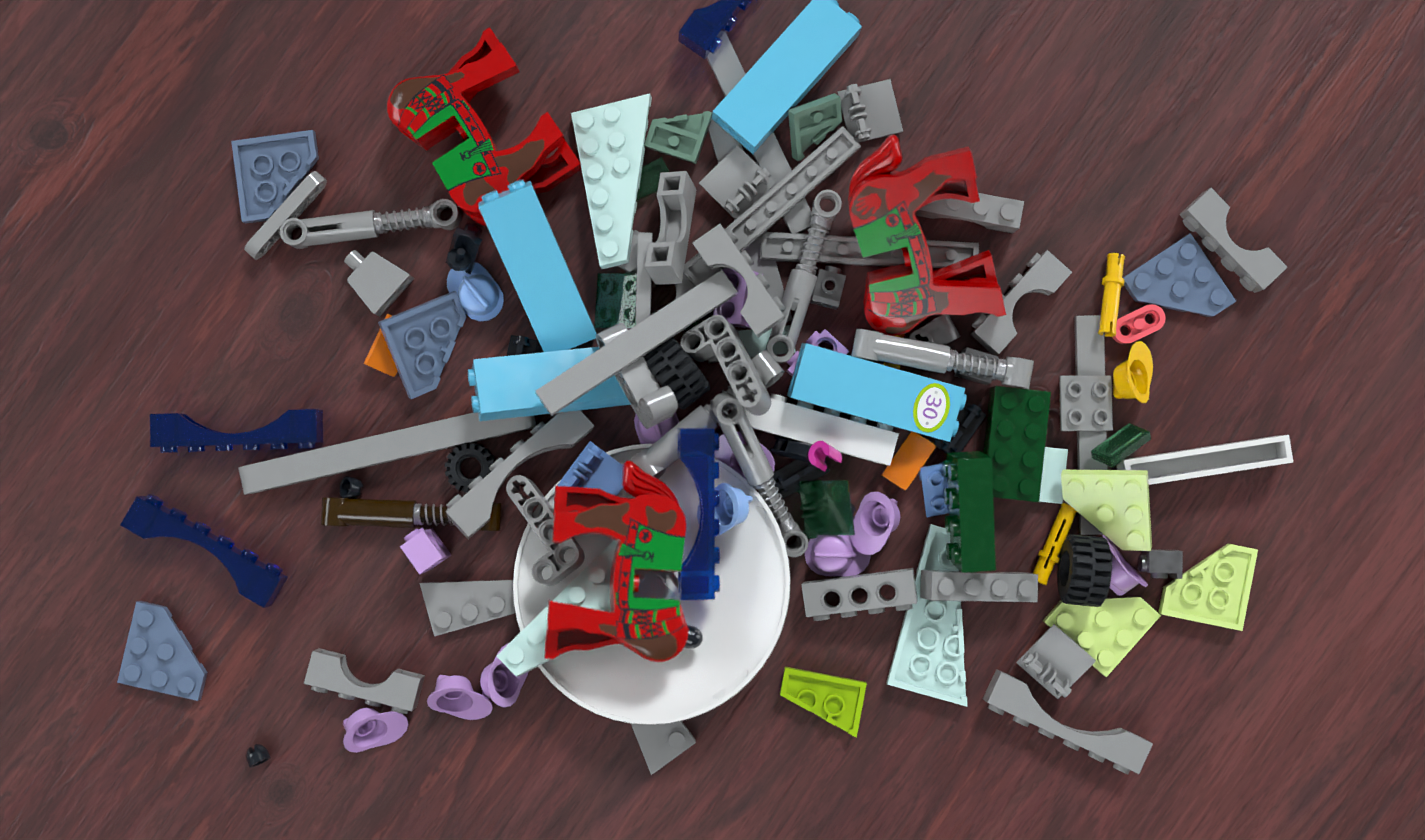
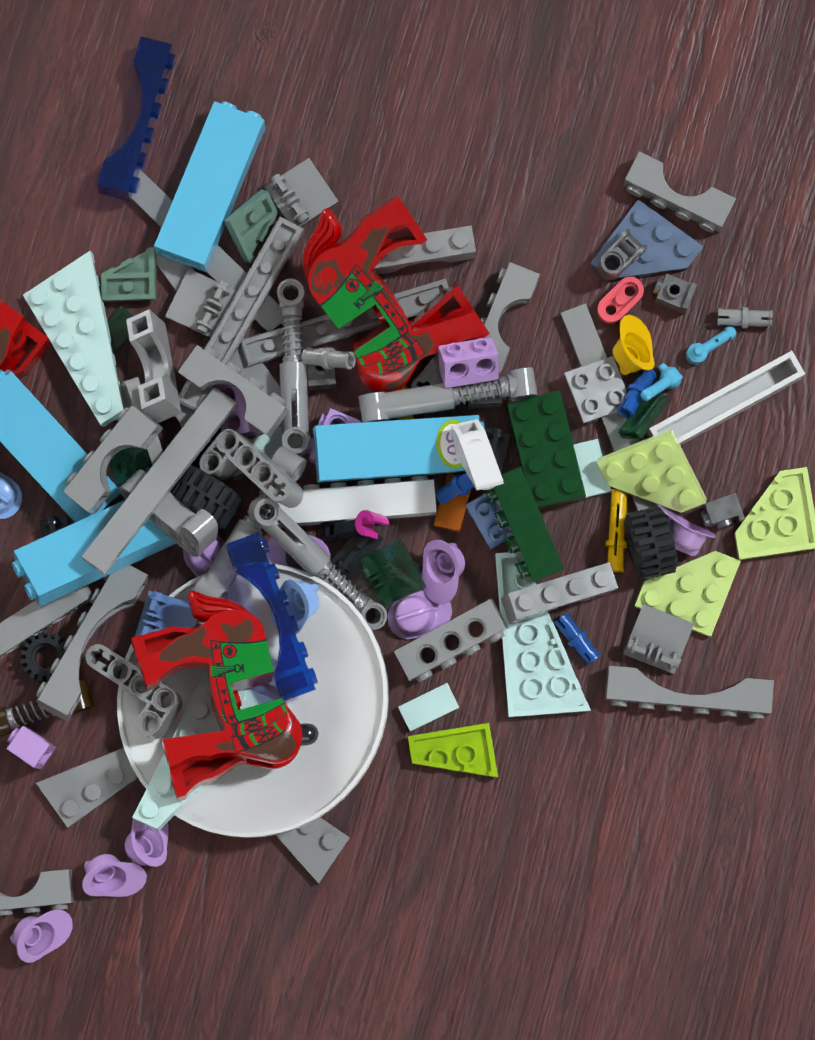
camera: 15 degrees left, 5 degrees down
(569, 322) = (90, 484): none -> light grey arch
(814, 646) = (428, 707): none -> light aqua tile
(841, 281) = (328, 358): none -> light grey pin
(923, 448) = (458, 486): none -> blue pin
(952, 430) = (476, 454): none -> white slope
(975, 334) = (468, 362): none -> lavender brick
(978, 633) = (577, 639): none -> blue pin
(1112, 287) = (583, 272): yellow pin -> none
(1121, 420) = (633, 397): none -> blue pin
(1156, 416) = (669, 379): none -> medium azure piece
(1159, 281) = (623, 252): none -> flat silver piece
(1183, 339) = (676, 302): none -> flat silver brick
(1194, 401) = (698, 352): none -> medium azure piece
(1250, 384) = (744, 317): none -> light grey pin

